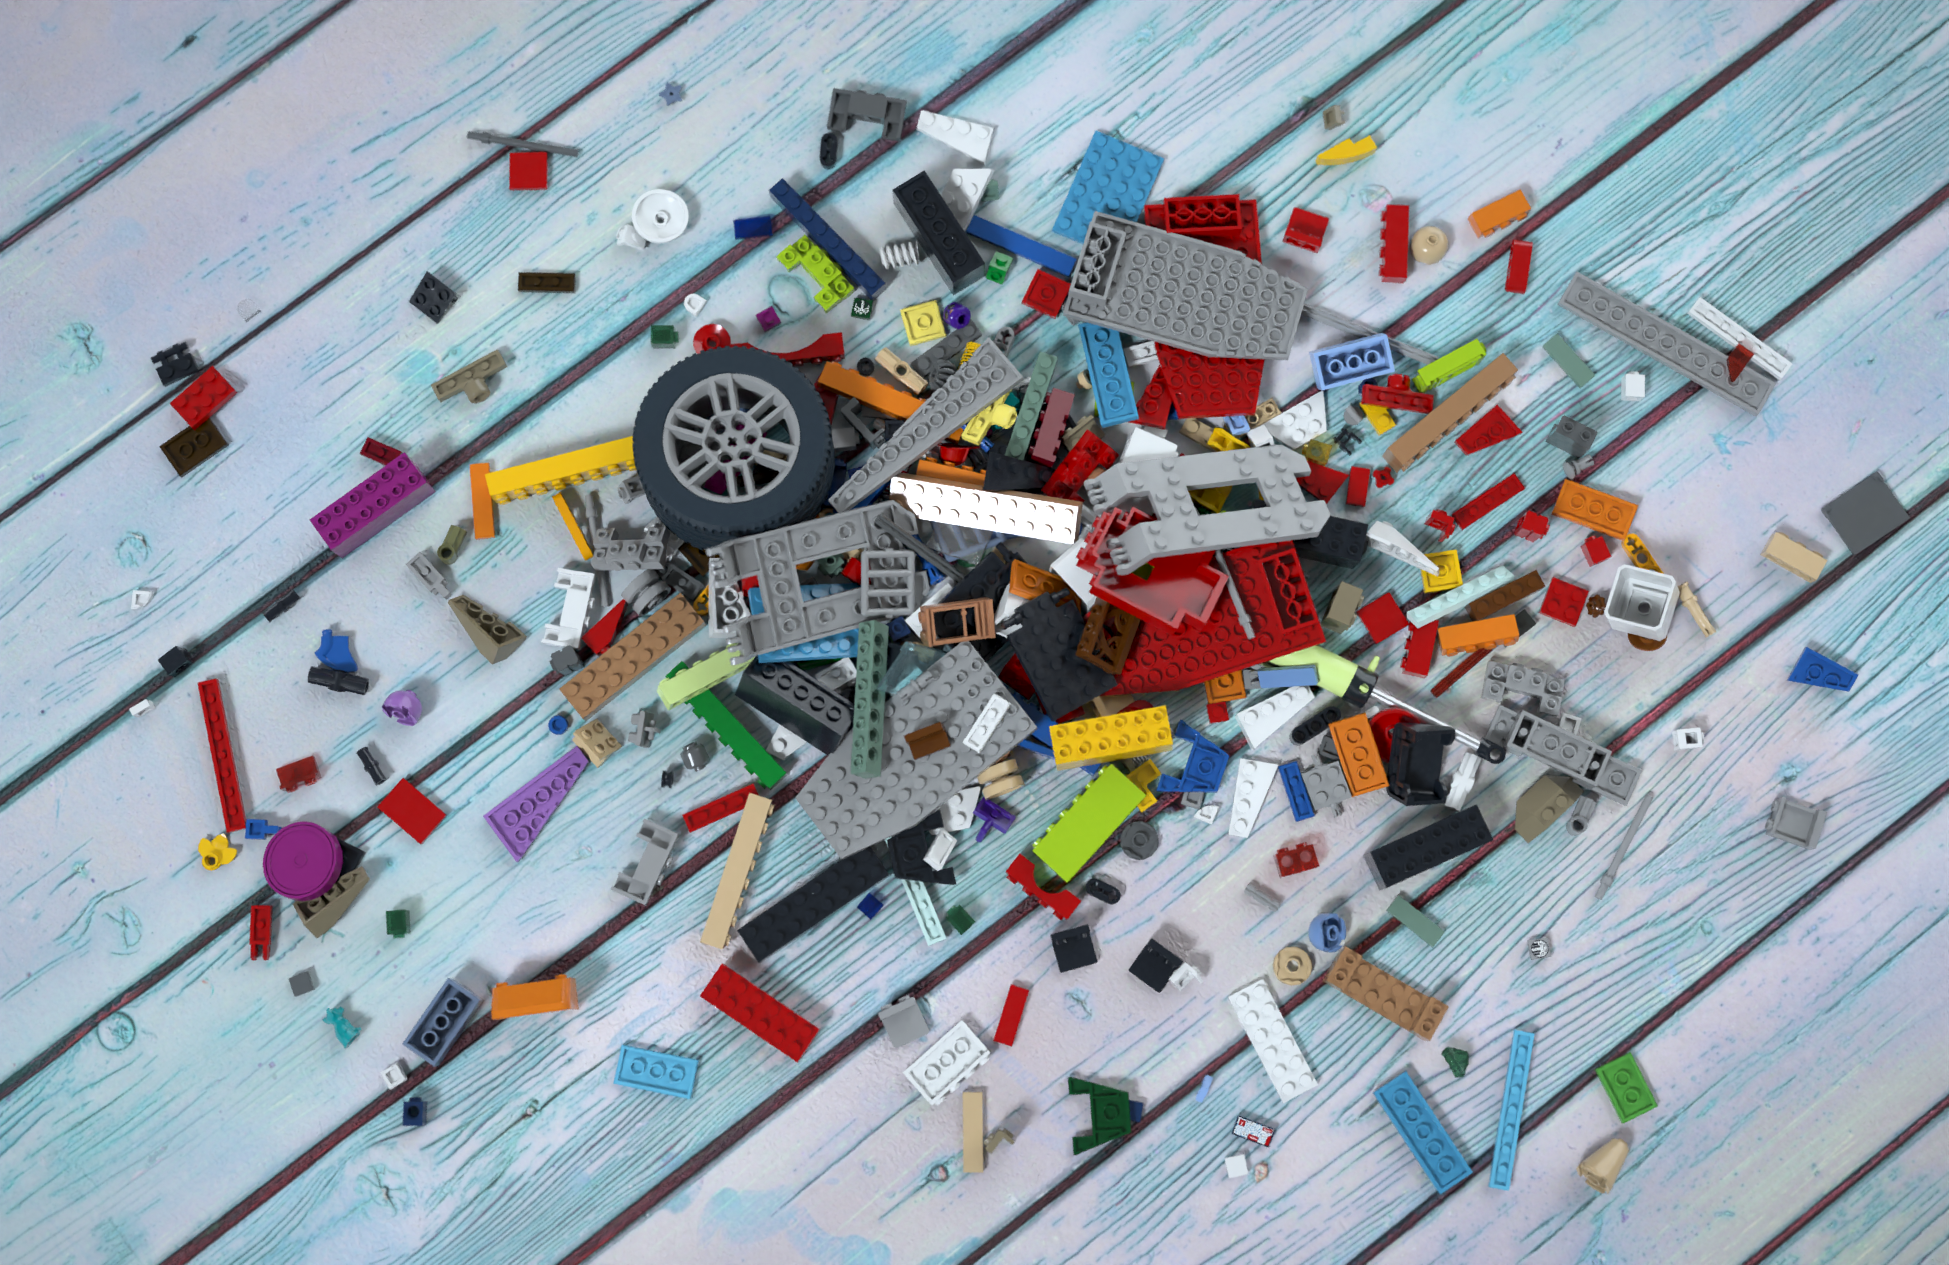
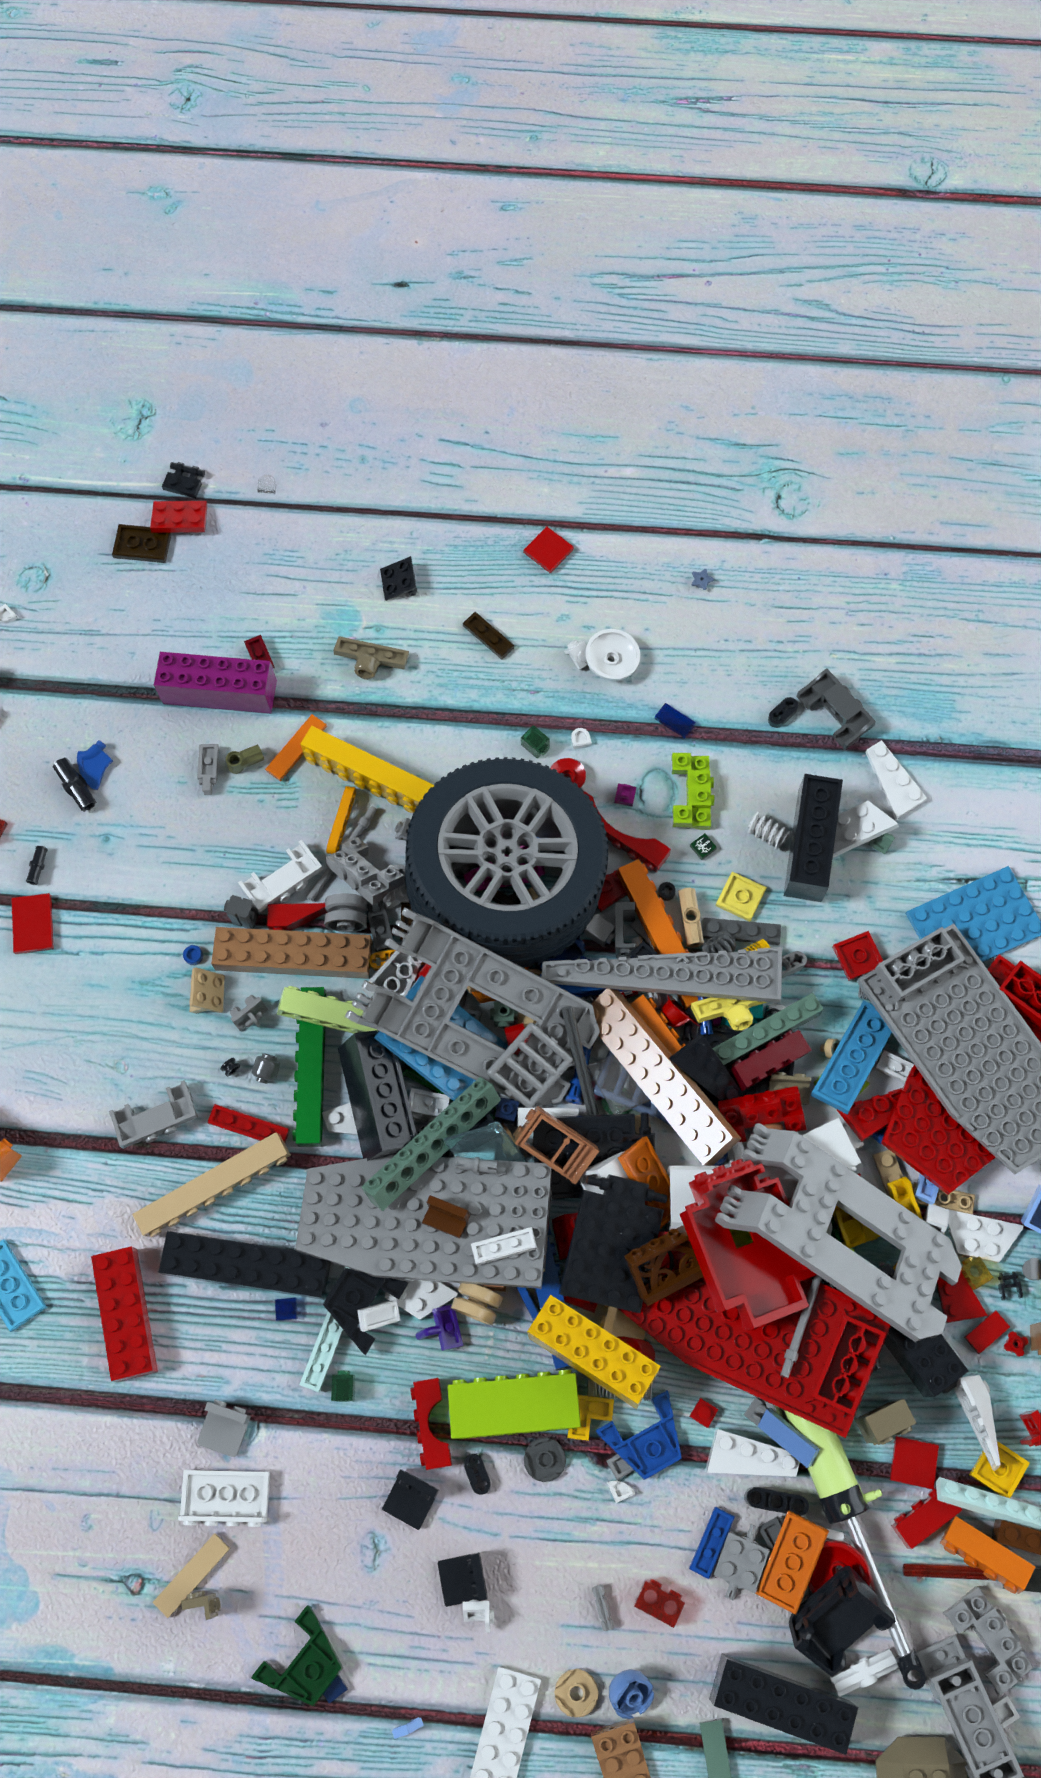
camera: 45 degrees right, 10 degrees down
(281, 605) = (89, 699): black pin -> none
(403, 706) = (99, 842): medium lavender cylinder -> none
(486, 138) = (540, 503): dark grey bar -> none
(489, 634) = (209, 843): dark tan wedge -> none
(528, 809) = (110, 997): medium lavender wing -> none
(827, 239) = (723, 775): dark blue brick -> none
(956, 315) = (772, 911): dark purple head -> none
(999, 267) = (838, 904): green bracket -> none
(1011, 1015) = (311, 1506): red tile -> none
(1021, 246) = (870, 903): blue tile -> none
(1225, 688) = (728, 1399): orange tile -> none
(1250, 790) = (672, 1506): white wing -> none

